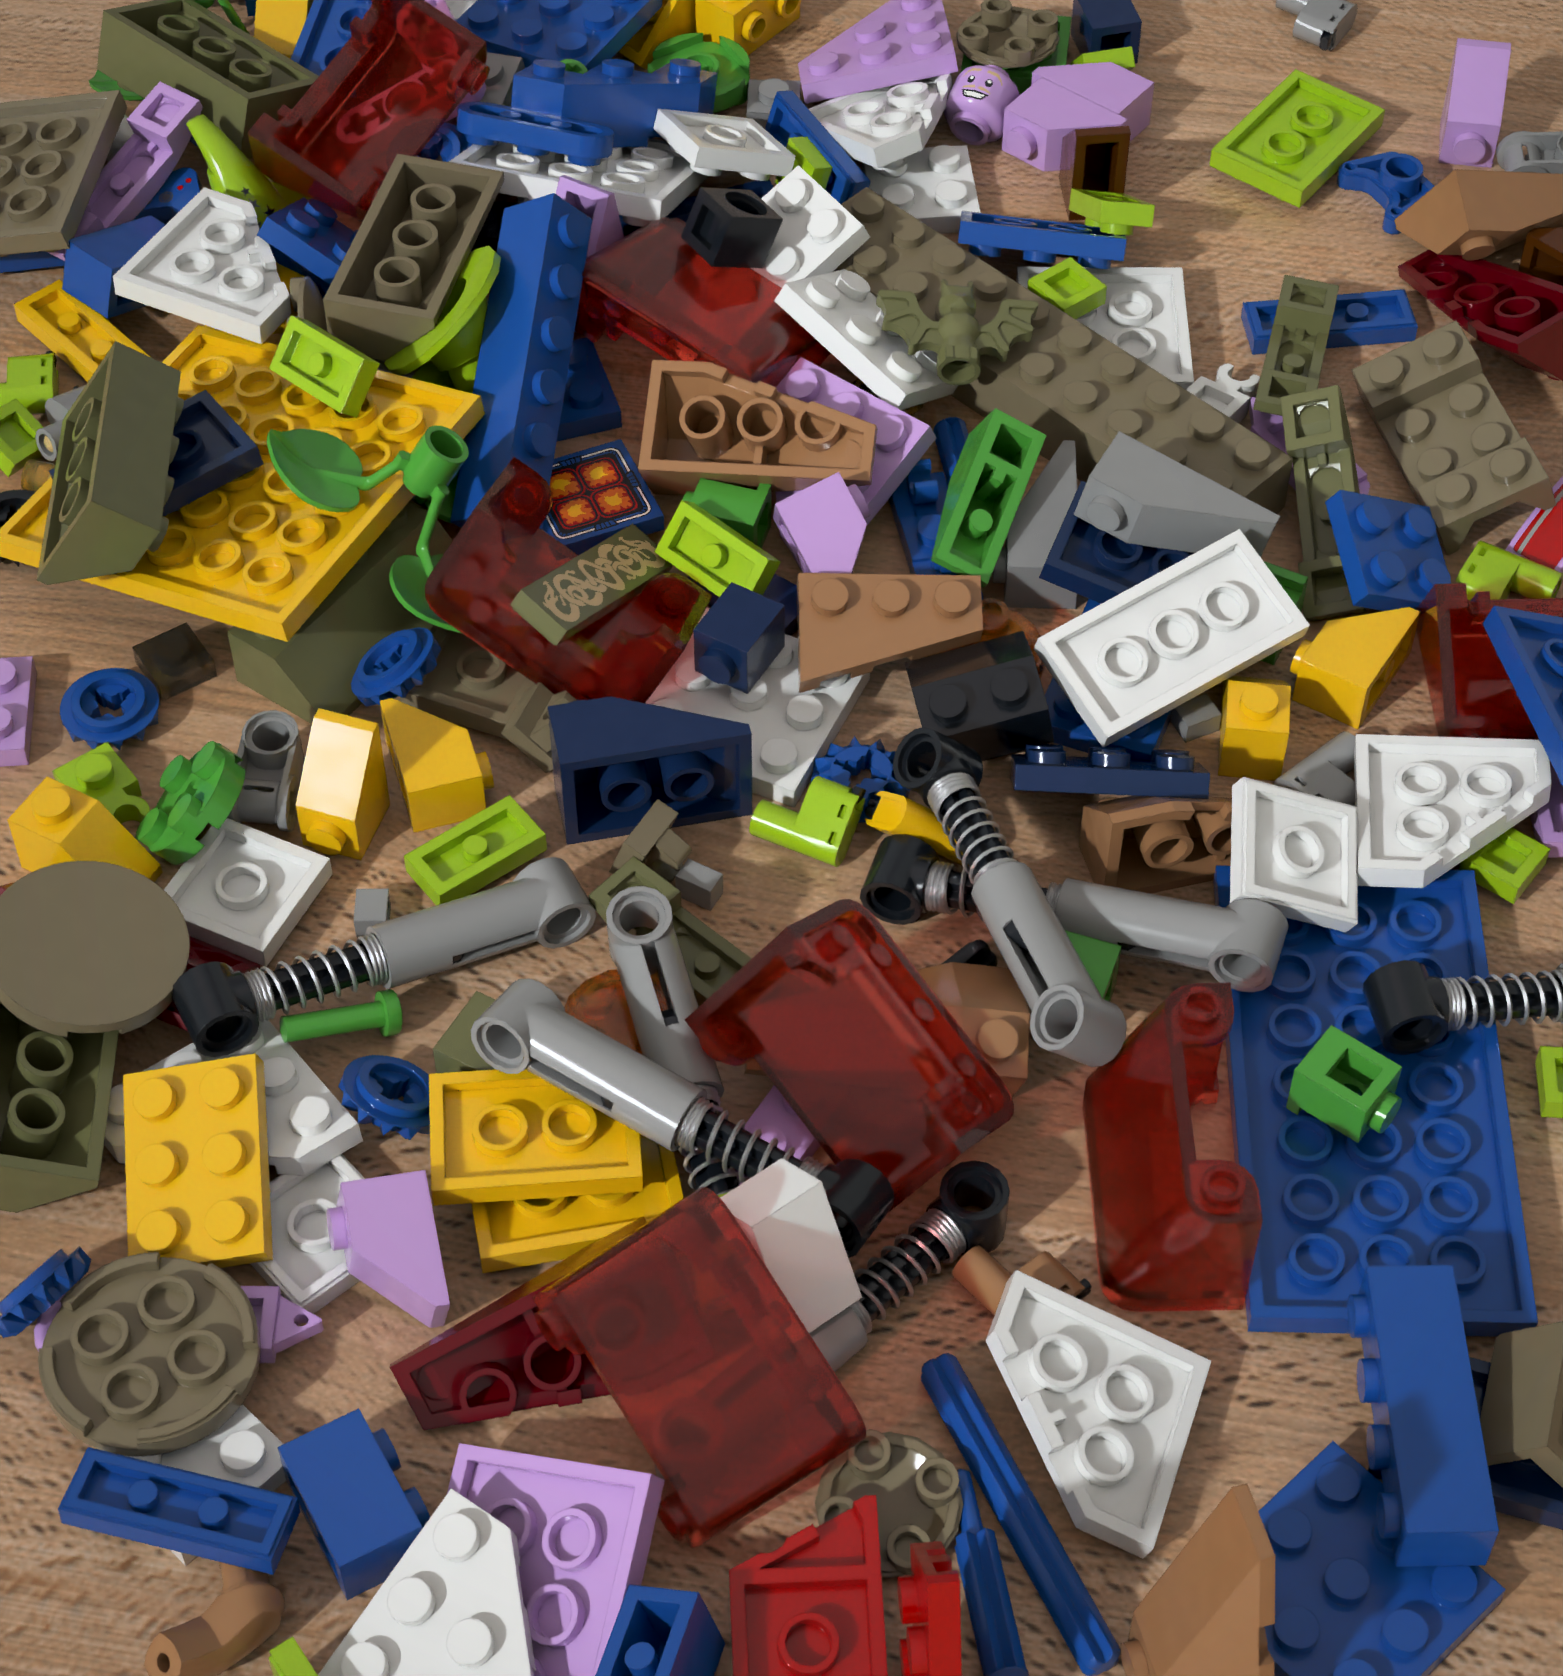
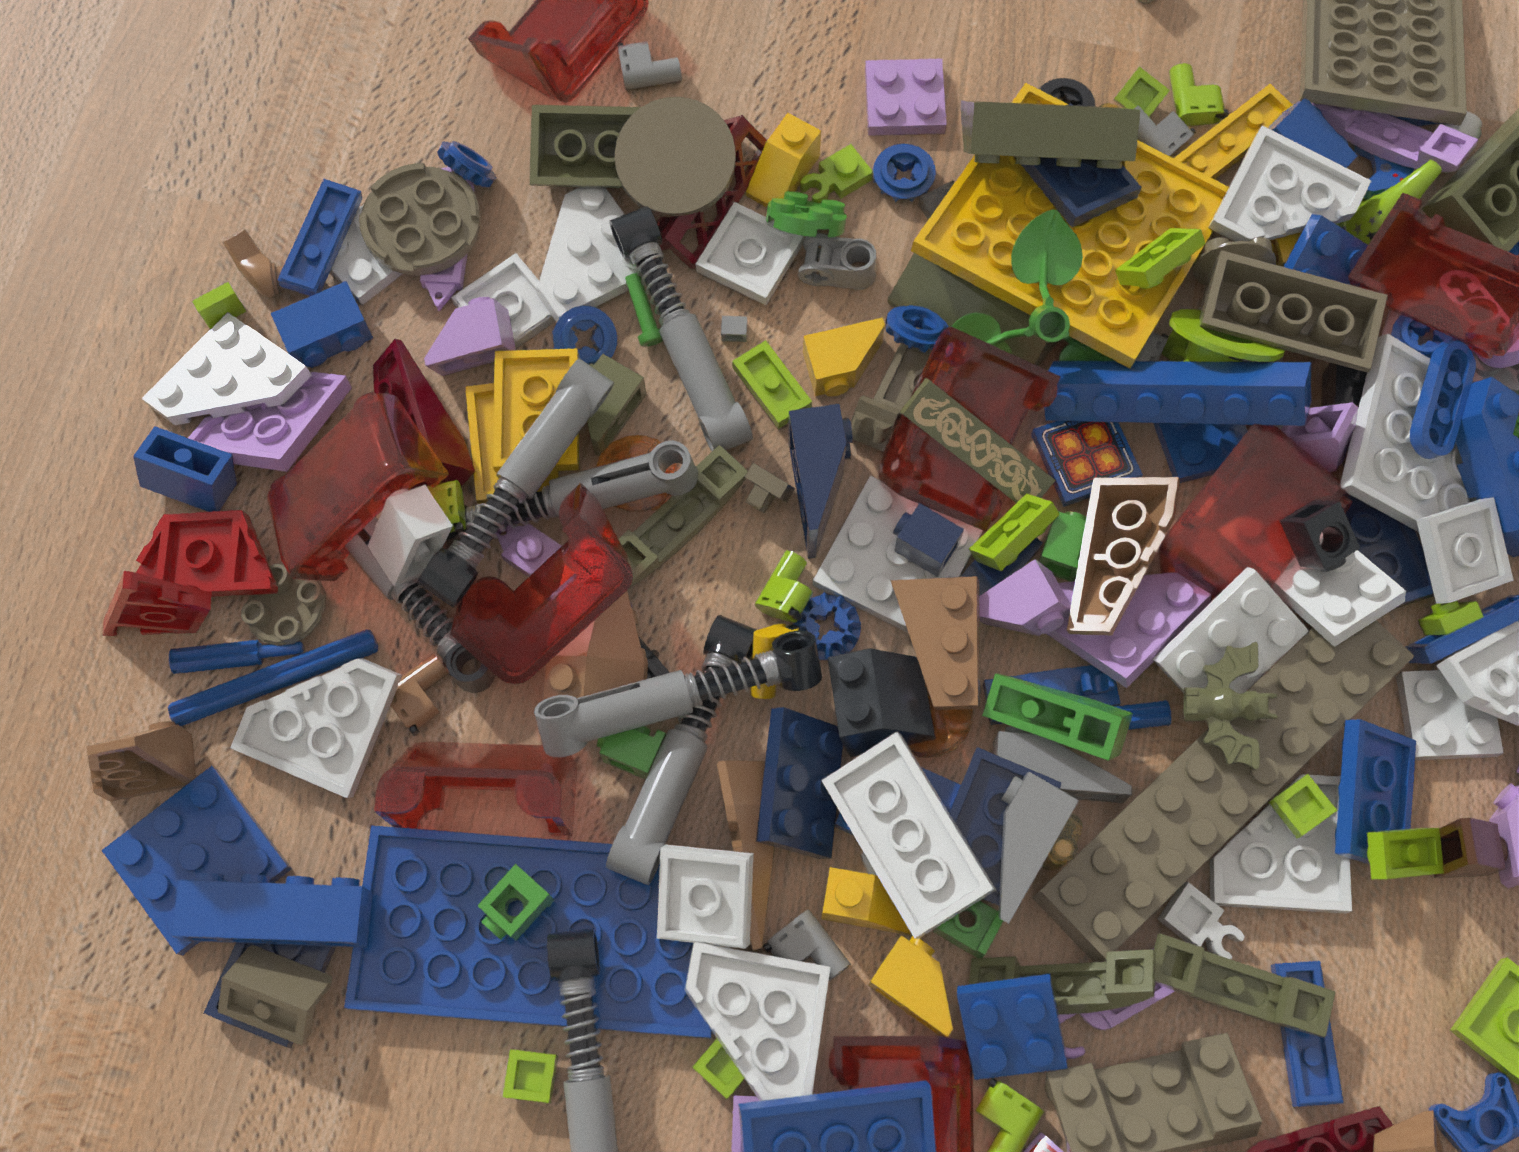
camera: 95 degrees right, 20 degrees up
(199, 1162) = (538, 234): yellow plate -> none
(342, 785) = (812, 299): yellow slope -> none
(699, 884) = (742, 519): light grey piece -> none

